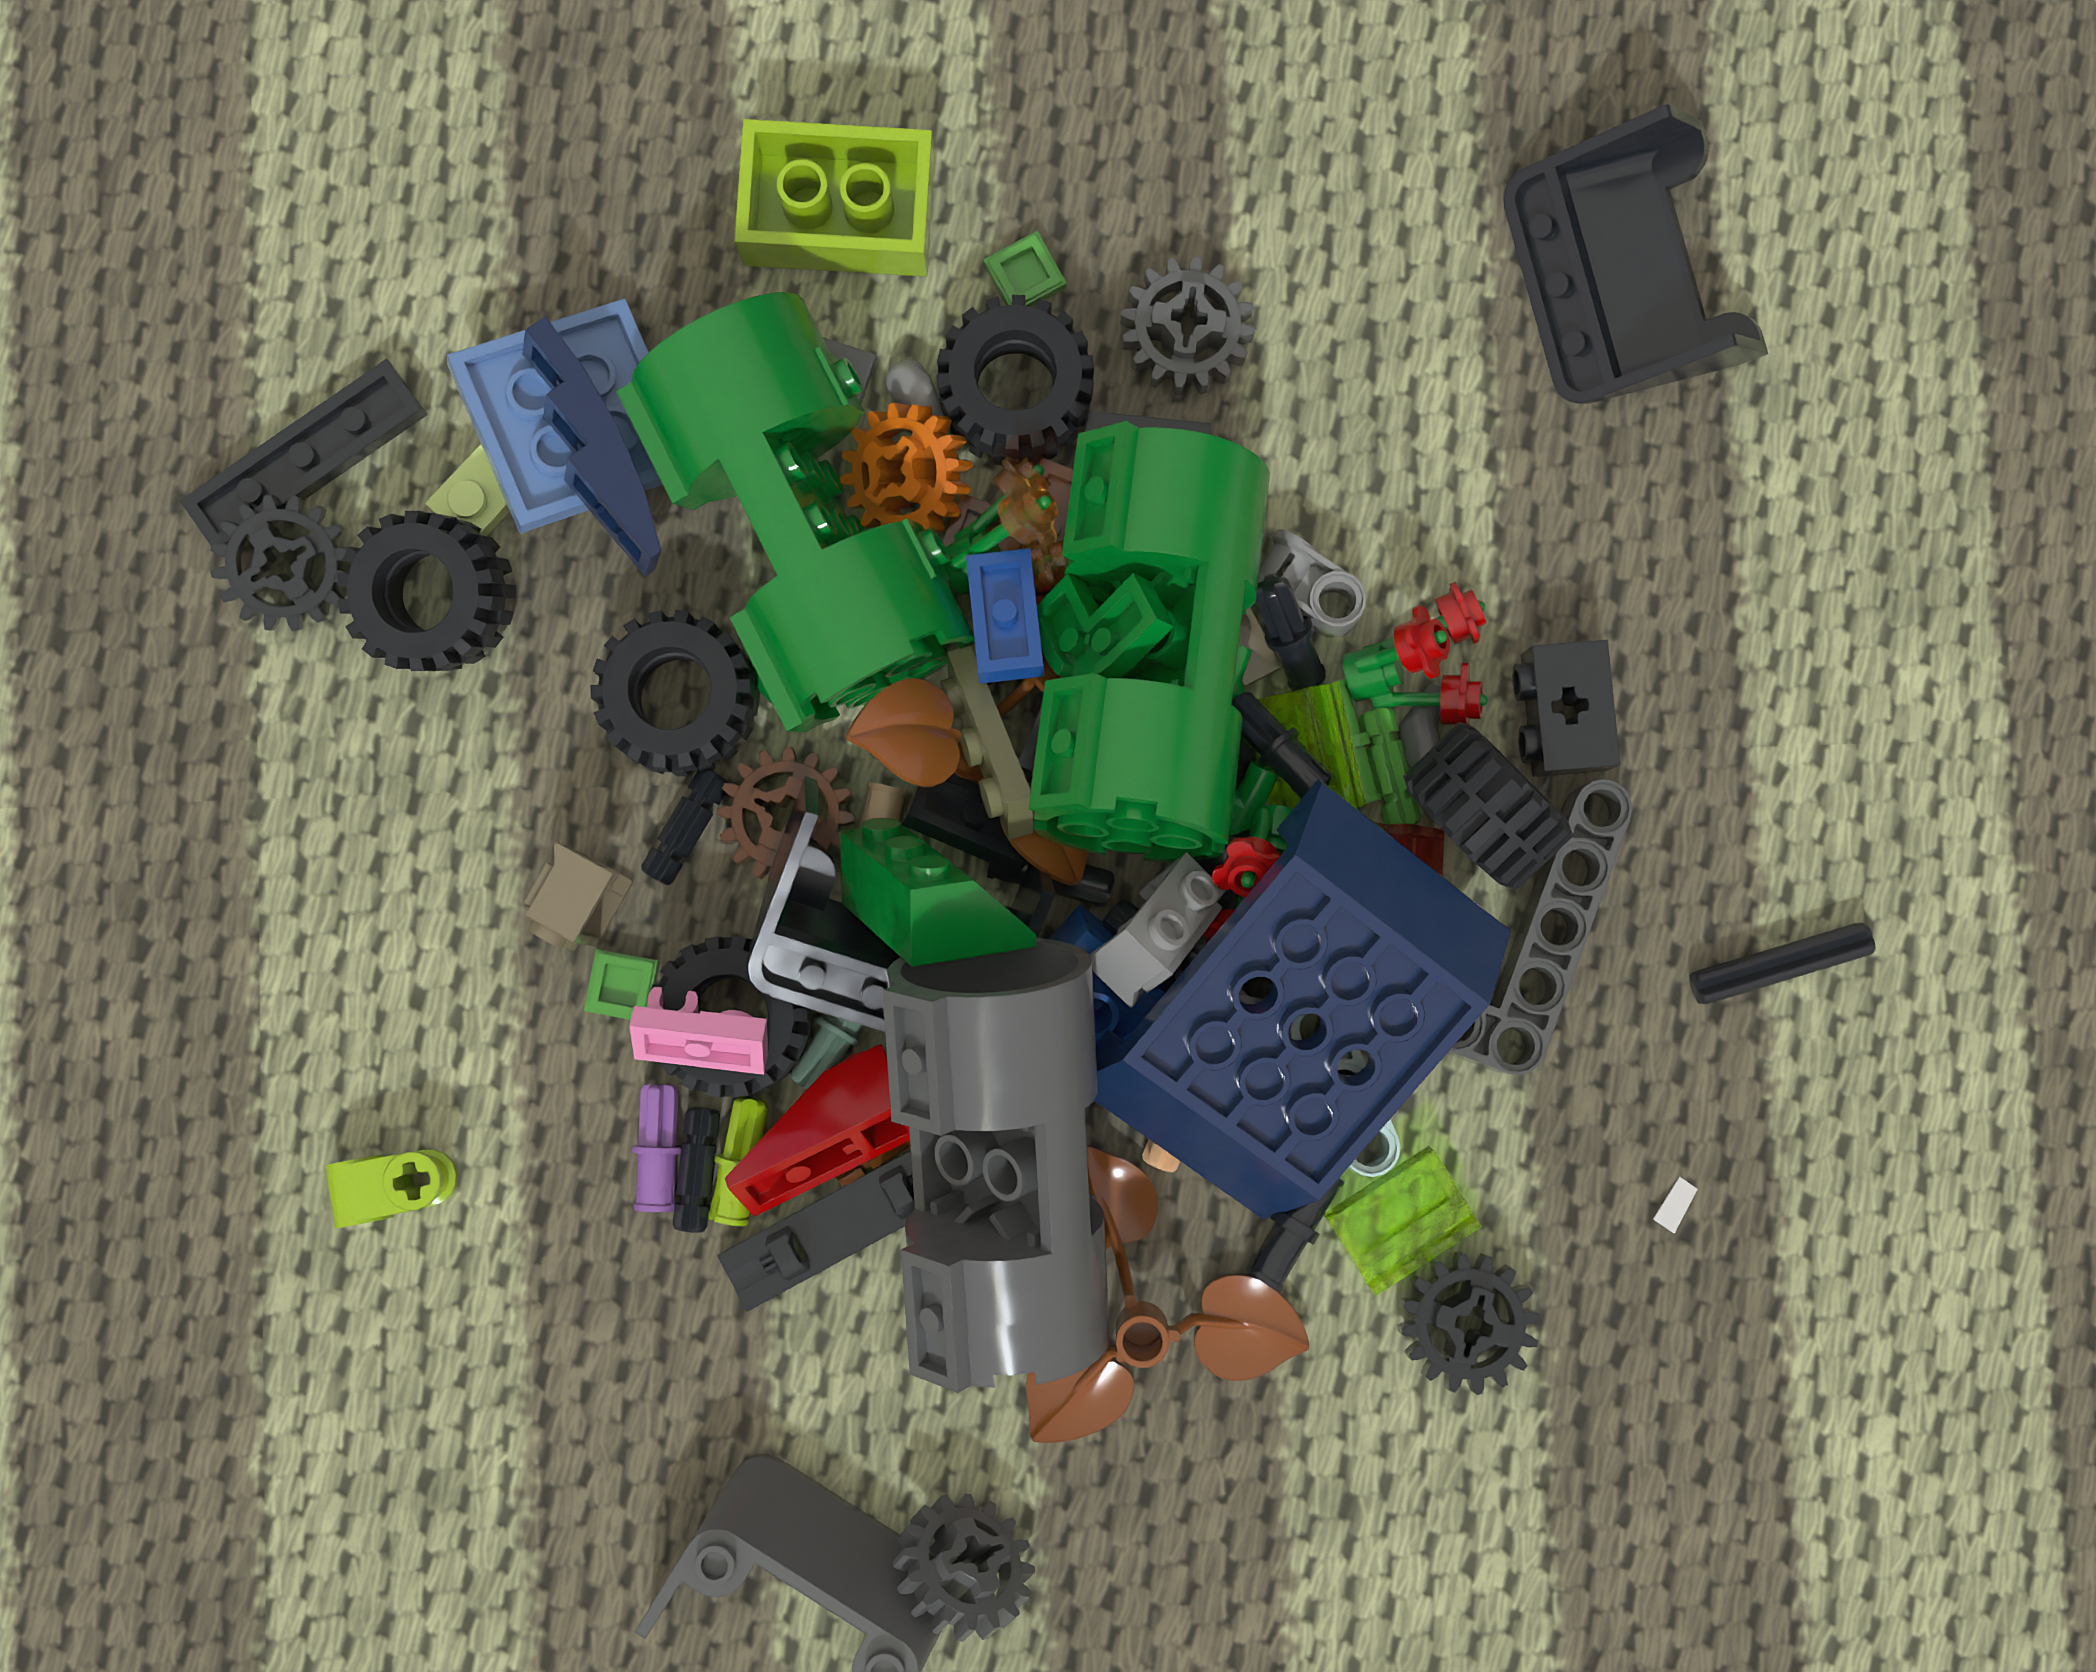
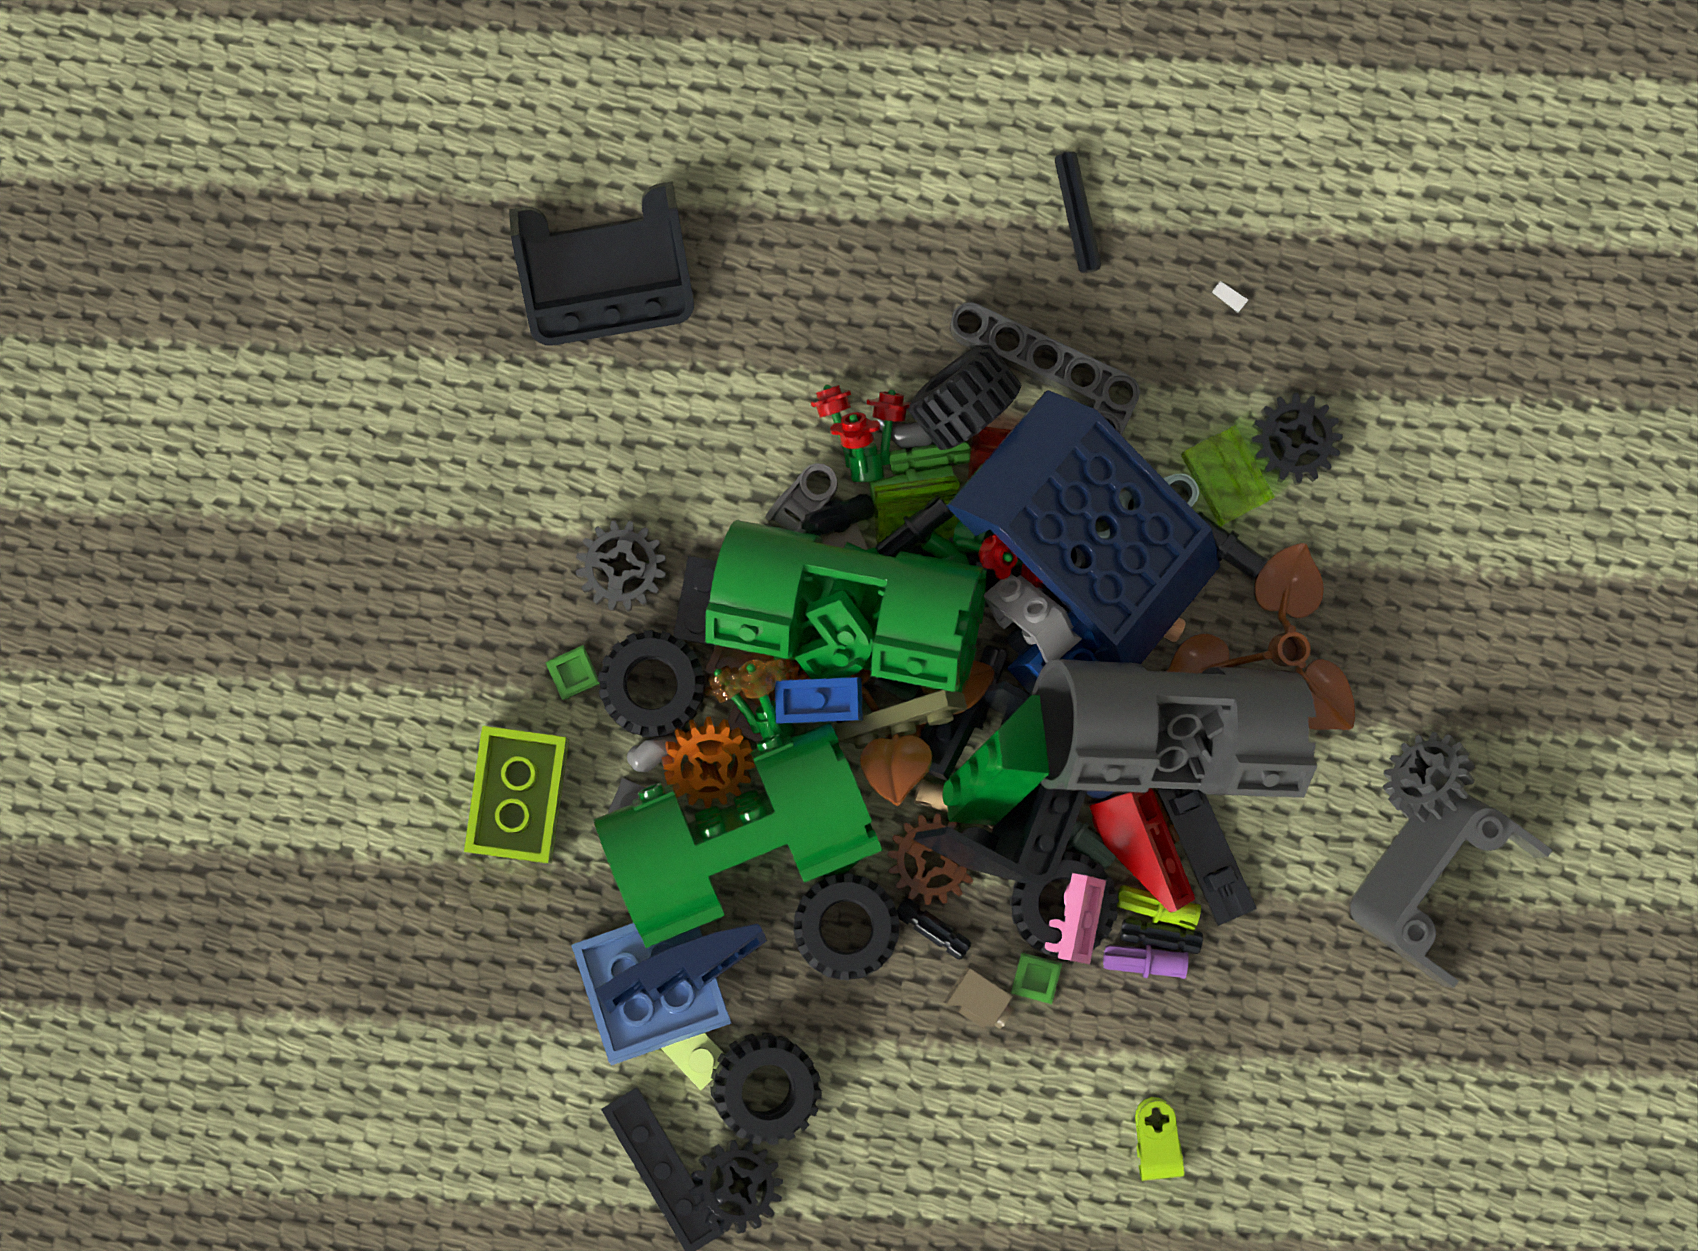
camera: 85 degrees left, 0 degrees up
(1583, 680) = (918, 323): black brick -> none

